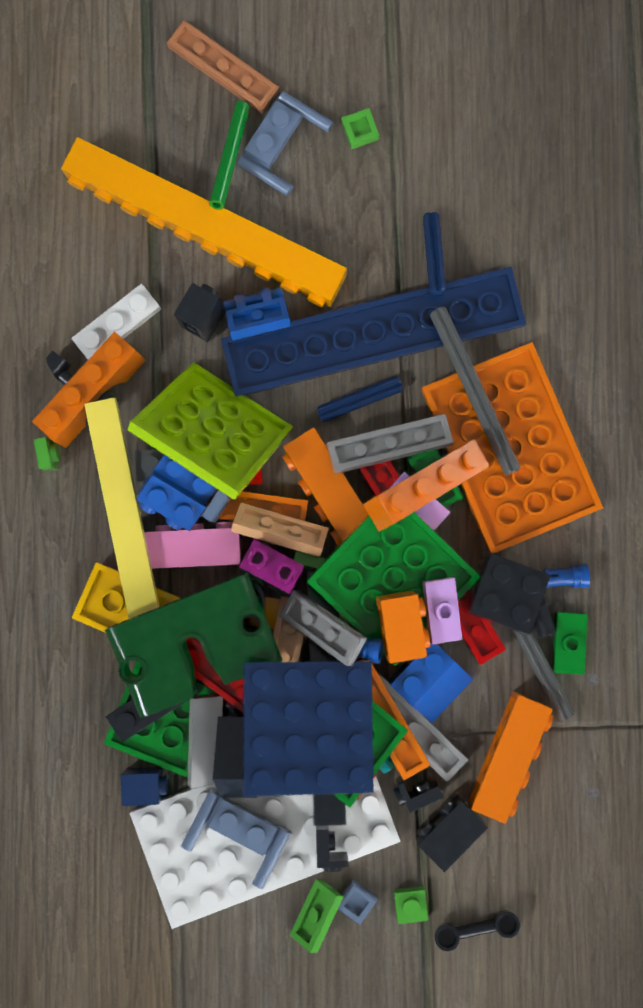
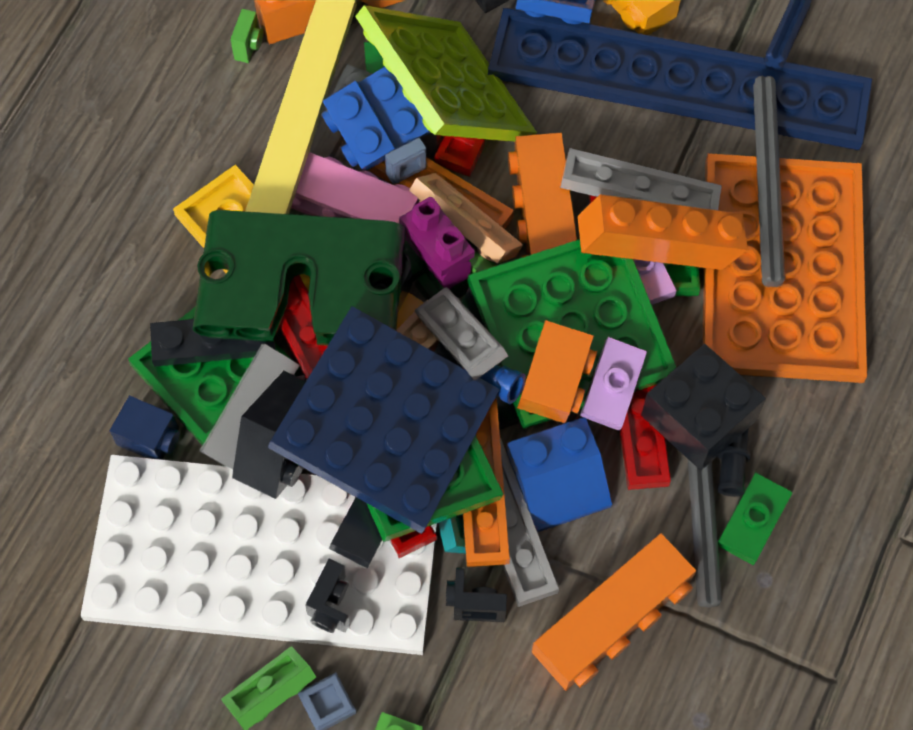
camera: 20 degrees right, 20 degrees down
(242, 827) = (238, 527): sand blue plate -> none
(359, 399) = (629, 139): dark blue axle -> none
(450, 832) = (492, 667): black brick -> none
(574, 576) = (795, 441): blue pin -> none

